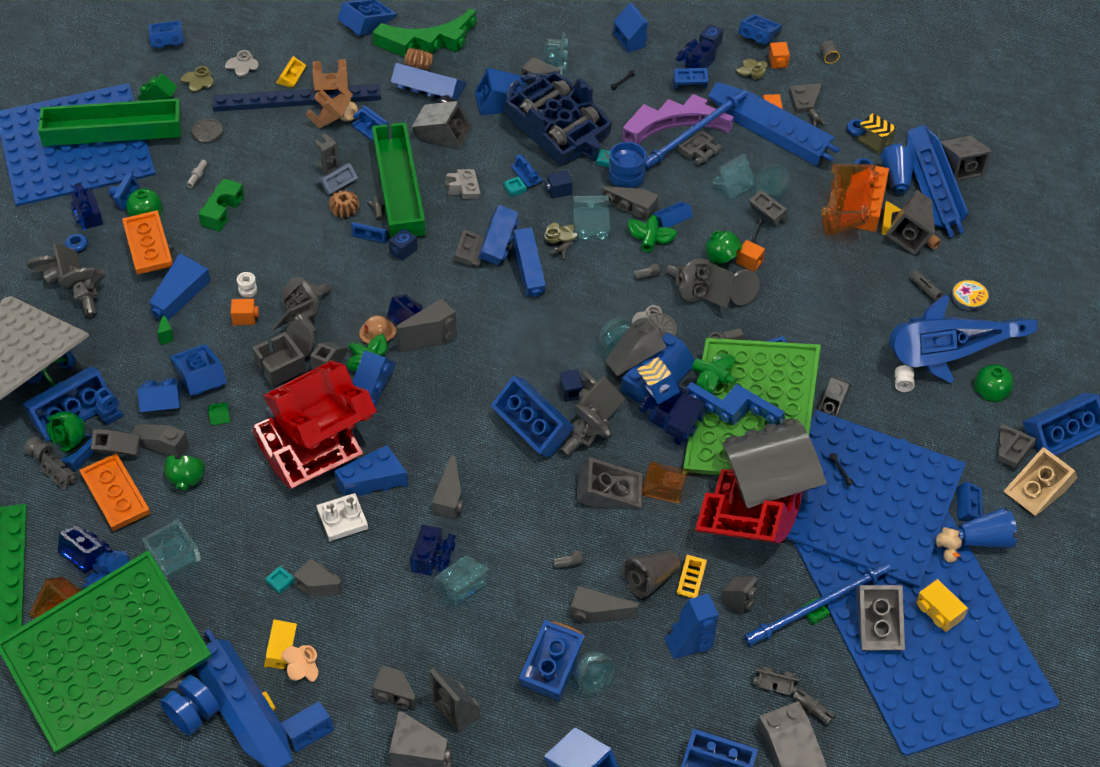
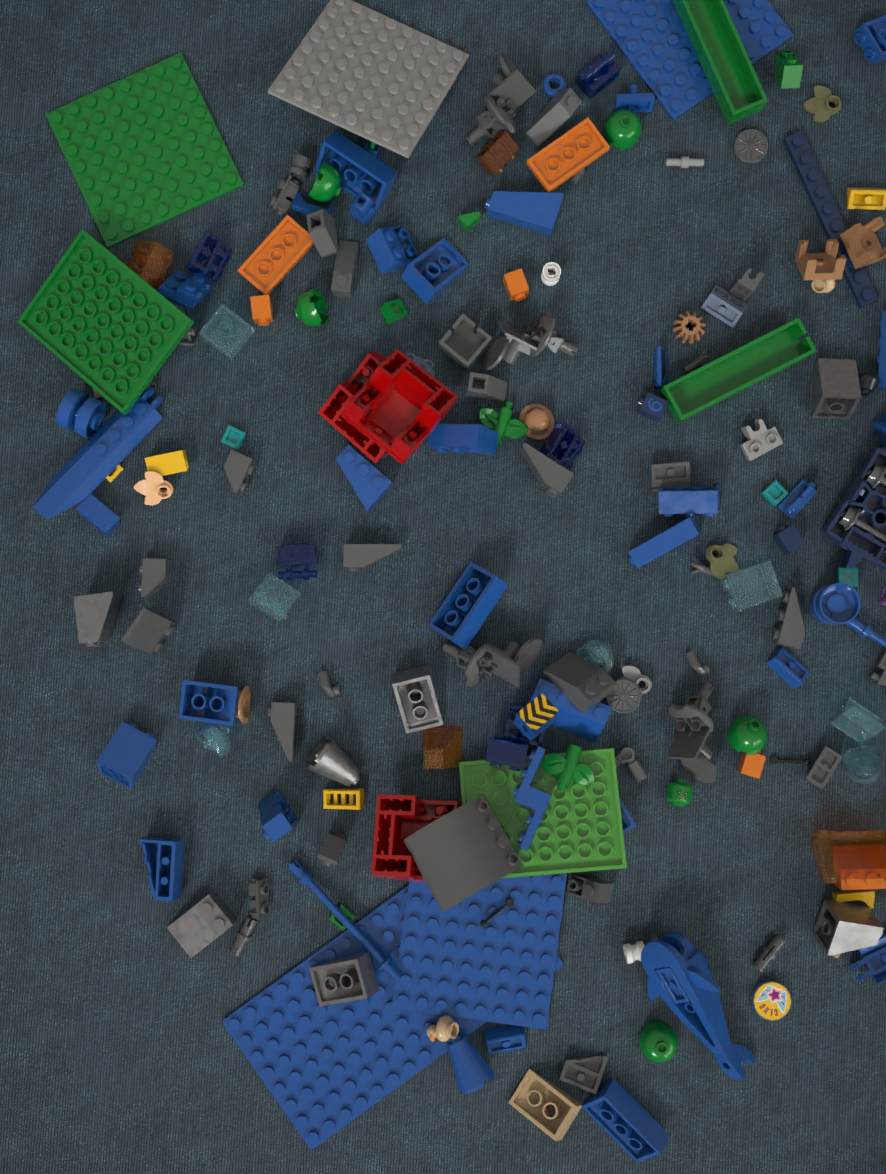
camera: 70 degrees right, 35 degrees up
(104, 245) = (553, 115): none -> dark grey slope
(114, 293) = (497, 153): none -> reddish brown brick
(160, 515) = (262, 309): none -> orange brick
(214, 212) = (662, 203): green arch -> none
(242, 63) = (859, 140): light grey plate -> none
(342, 517) = (311, 467): white plate -> none
(366, 120) = (814, 310): blue hinge -> none
(570, 384) = (525, 629): dark blue brick -> none
(650, 233) = (752, 653): green plant -> none
(762, 309) = (679, 793): none -> green head
(941, 605) = (371, 1033): yellow brick -> none

